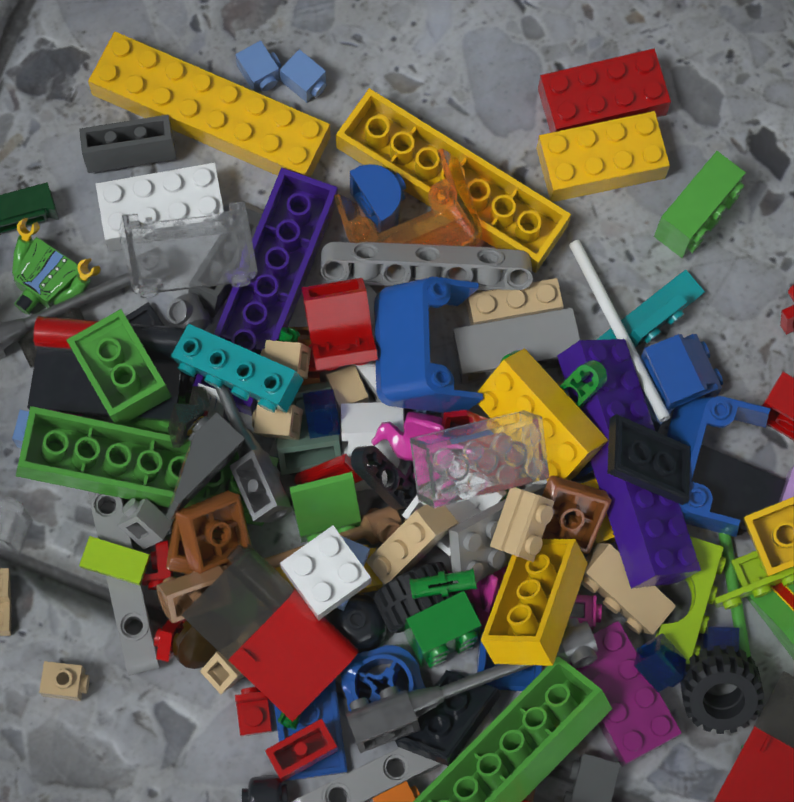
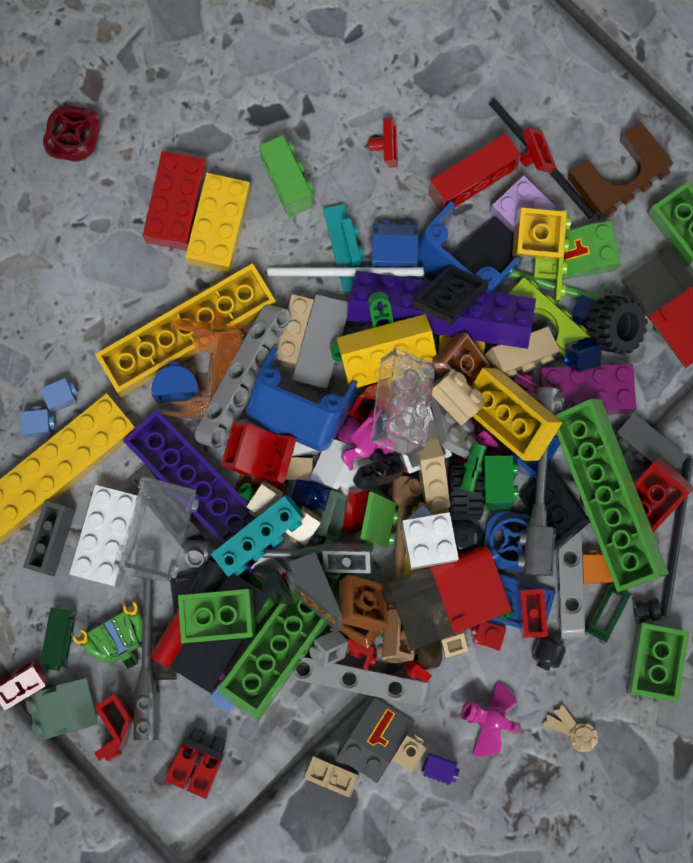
camera: 60 degrees left, 5 degrees up
(58, 724) = (440, 769): none -> dark purple brick
(60, 632) = (375, 740): none -> dark grey slope
(114, 561) = (346, 680): lime tile -> none
(148, 762) = (492, 720): none -> dark pink animal

